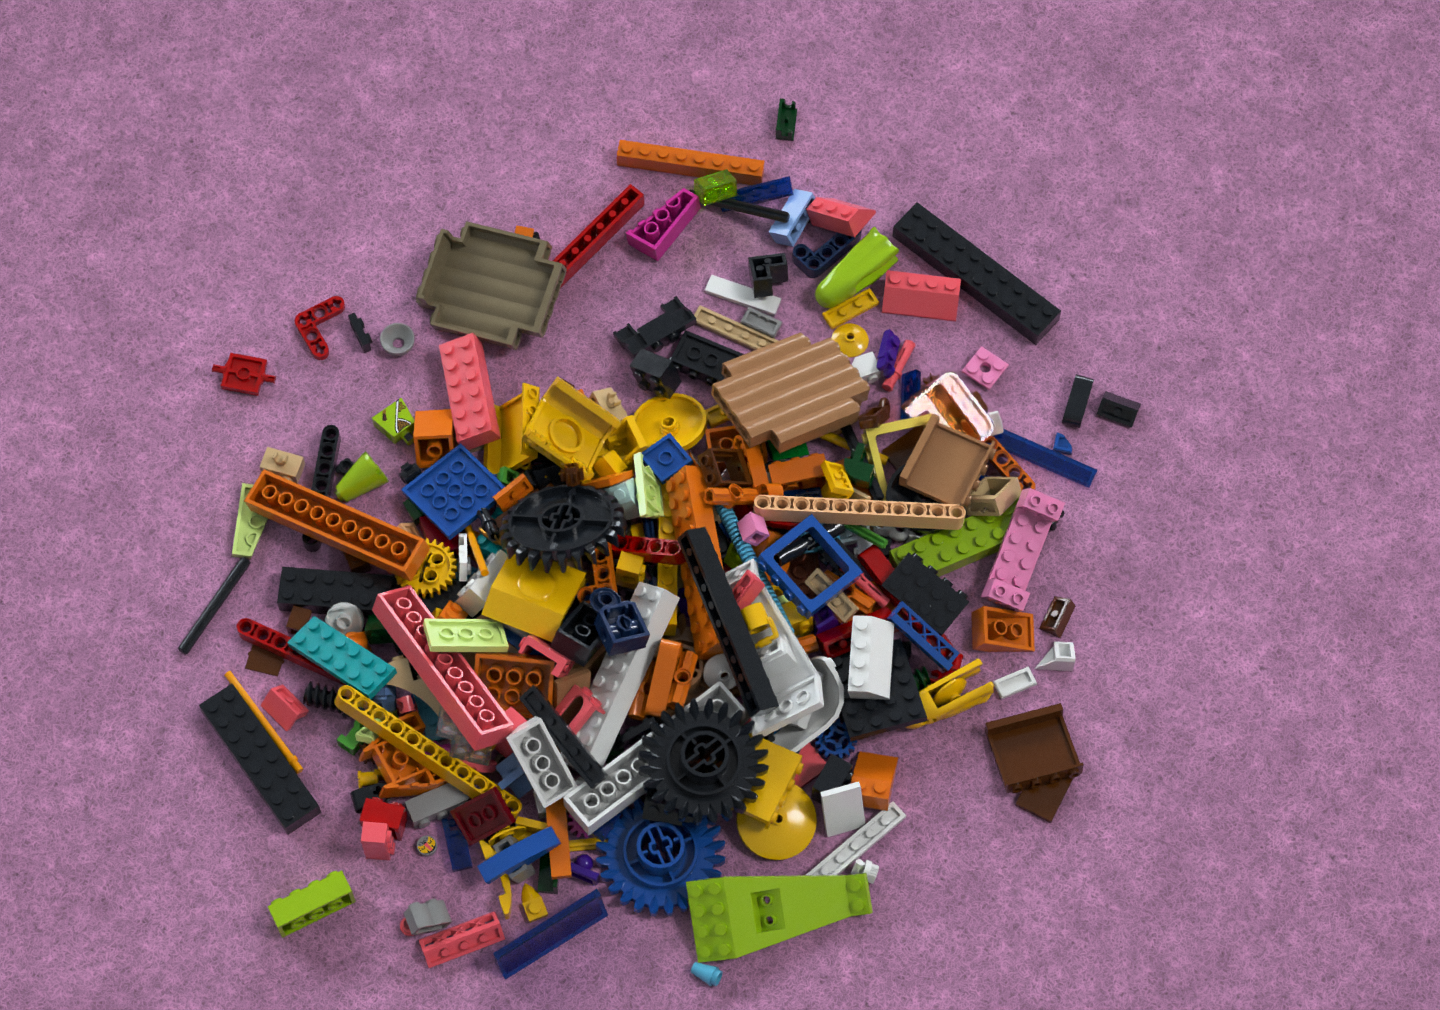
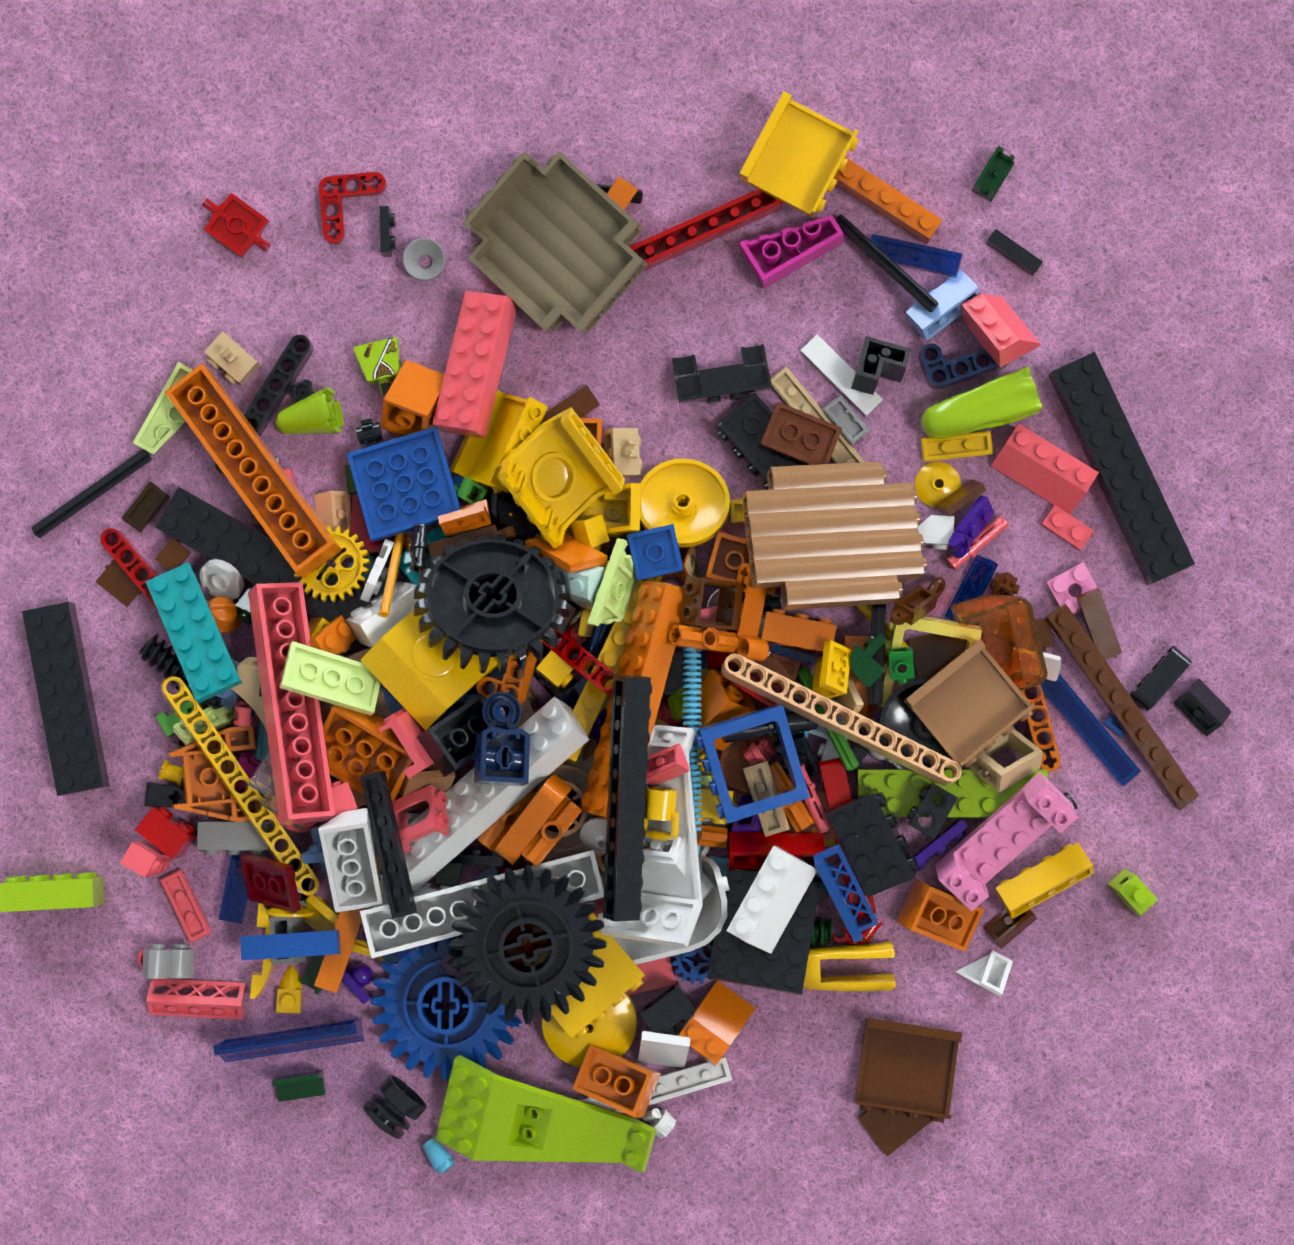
camera: 30 degrees right, 20 degrees up
(260, 598) = (145, 507): none -> dark brown tile
(283, 707) = (118, 648): coral panel -> none
(292, 759) = (89, 656): light orange bar -> none
(421, 874) = (185, 906): none -> coral tile
(426, 846) = (204, 876): tile -> none
(572, 474) = (533, 538): reddish brown gear -> none
(572, 968) = (299, 1086): none -> dark green panel
(641, 158) = (798, 156): none -> yellow panel
(655, 374) = (692, 436): black brick -> none
(656, 945) = (390, 1111): none -> black wheel
(715, 187) = (869, 230): clear neon green brick -> none
(730, 342) = (800, 435): none -> copper plate
(753, 529) = (711, 688): bright pink brick -> none
(808, 568) = (758, 753): none -> coral piece
(819, 849) = (616, 1081): none -> orange slope
(826, 165) = (1014, 252): none -> black piece
(871, 338) = (960, 497): none -> reddish brown tile
(877, 459) = (901, 656): none -> green brick
(950, 692) = (848, 968): yellow dish -> none
(958, 329) = (1067, 527): none -> coral plate
(960, 550) = (937, 813): none -> black brick
(975, 582) = (938, 845): none -> dark purple plate
(1014, 382) = (1099, 623): none -> reddish brown tile
(1015, 683) = (924, 979): white tile -> none
(1060, 430) = (1122, 706): none -> reddish brown plate
(1066, 572) = (1044, 880): none -> yellow brick
(1136, 553) = (1132, 892): none -> lime torso

